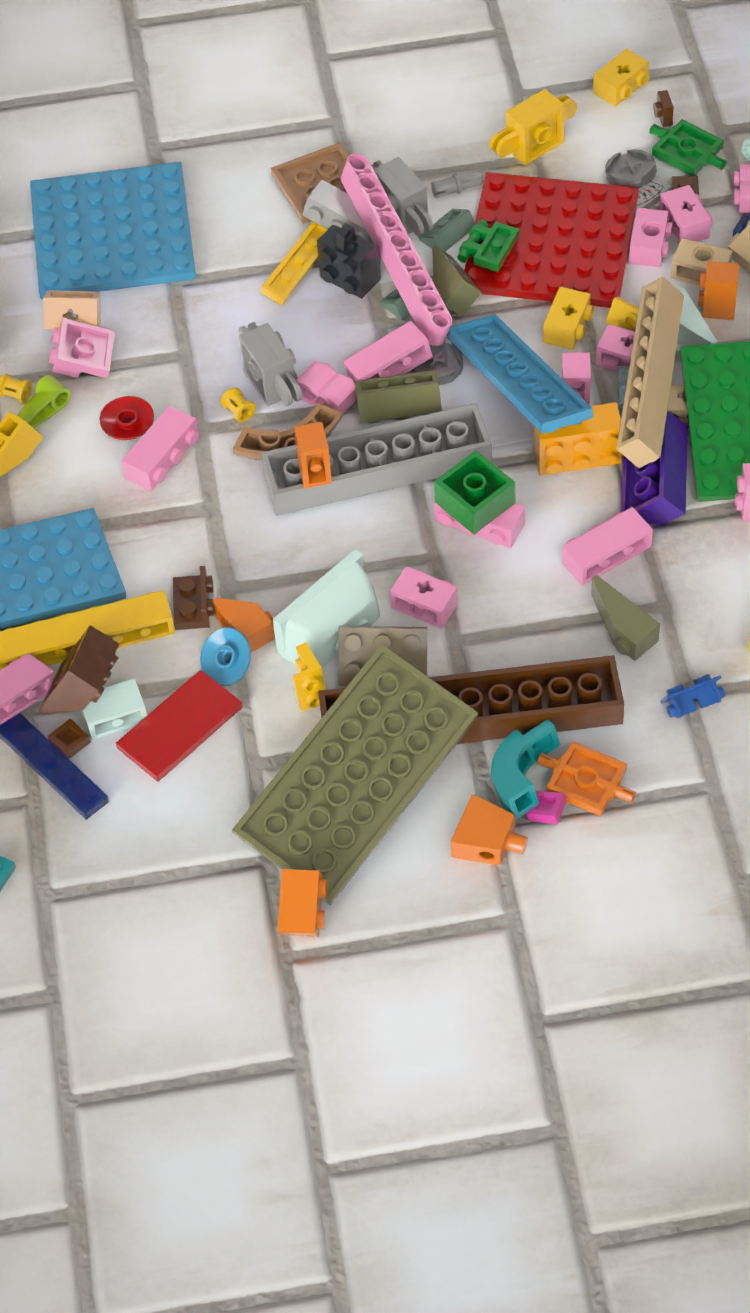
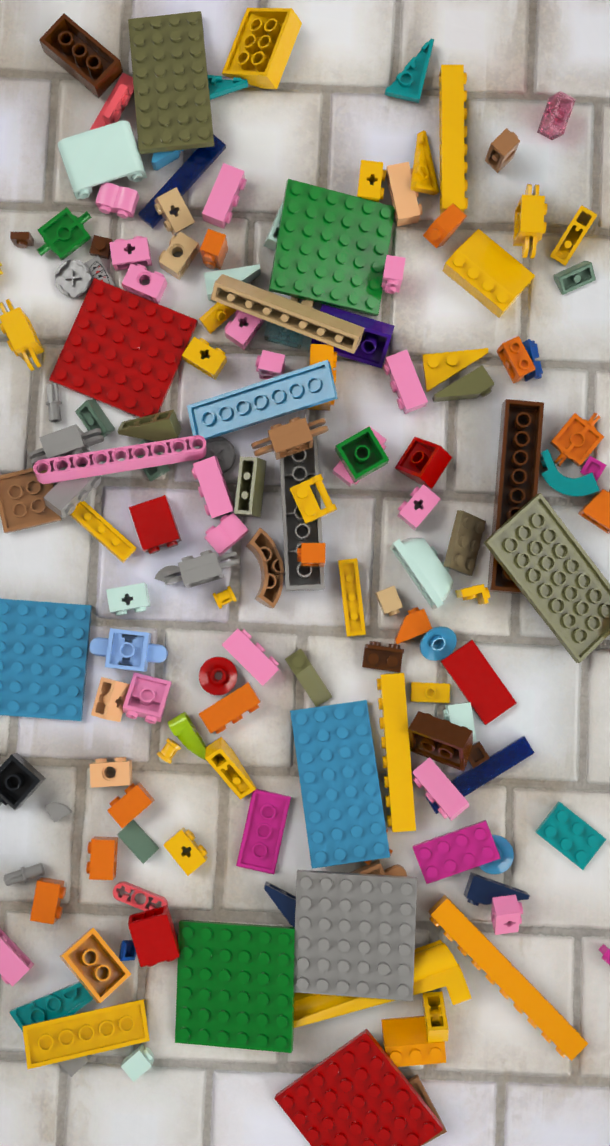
camera: 85 degrees left, 30 degrees up
(84, 440) = (230, 708): none -> orange brick
(142, 316) = (128, 650): none -> light blue brick
(147, 515) = (308, 677): none -> olive slope
(152, 668) = (430, 692): none -> yellow plate
(212, 305) = (117, 595): none -> light aqua brick
(271, 546) = (351, 597): none -> yellow plate
(276, 588) = (389, 601): none -> tan brick
(320, 313) = (155, 524): none -> red brick
(348, 260) = (118, 495): black hinge -> none
(390, 448) = (307, 502): none -> yellow plate
(471, 399) = (290, 438): none -> medium nougat brick
(491, 592) = (423, 462): none -> red slope
(495, 247) = (133, 390): green plate -> none
(649, 591) = (441, 366): none -> yellow wing
(684, 667) = (515, 359): none -> orange bracket

